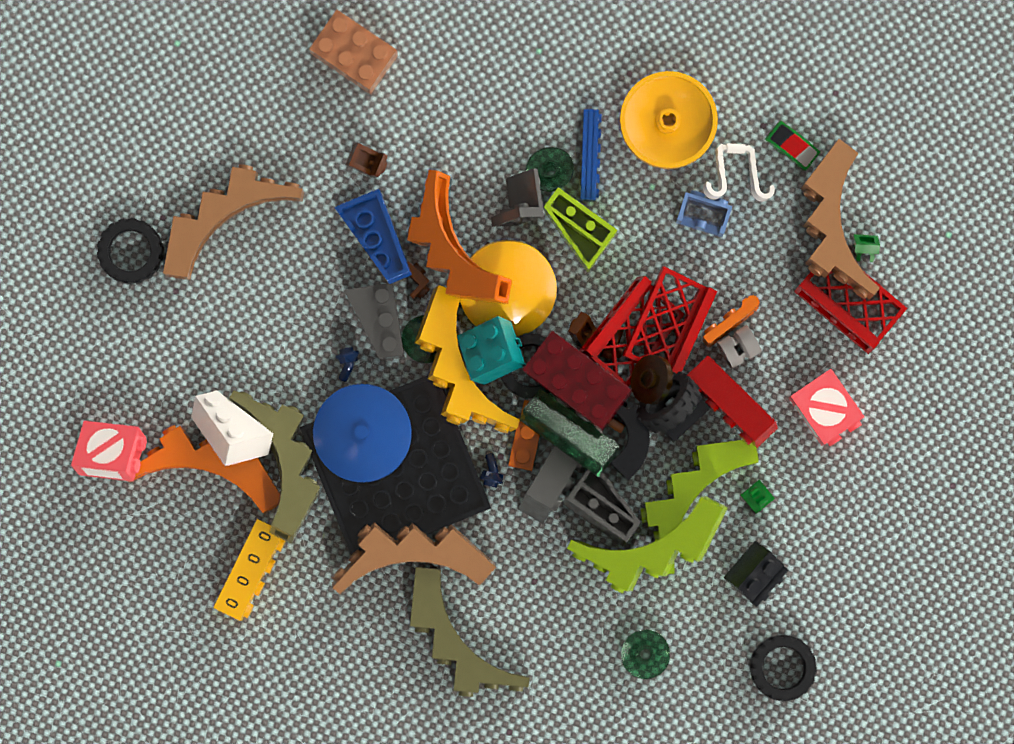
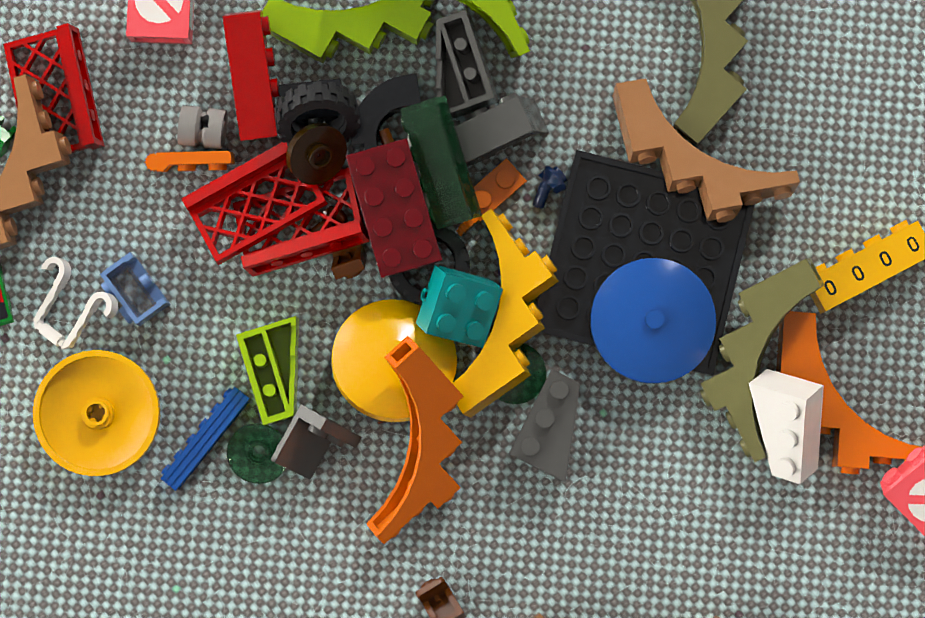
camera: 145 degrees left, 0 degrees up
(347, 357) = (611, 411): dark blue plate -> none
(375, 231) = (486, 524): blue wing -> none
(419, 278) = (476, 446): reddish brown bracket -> none

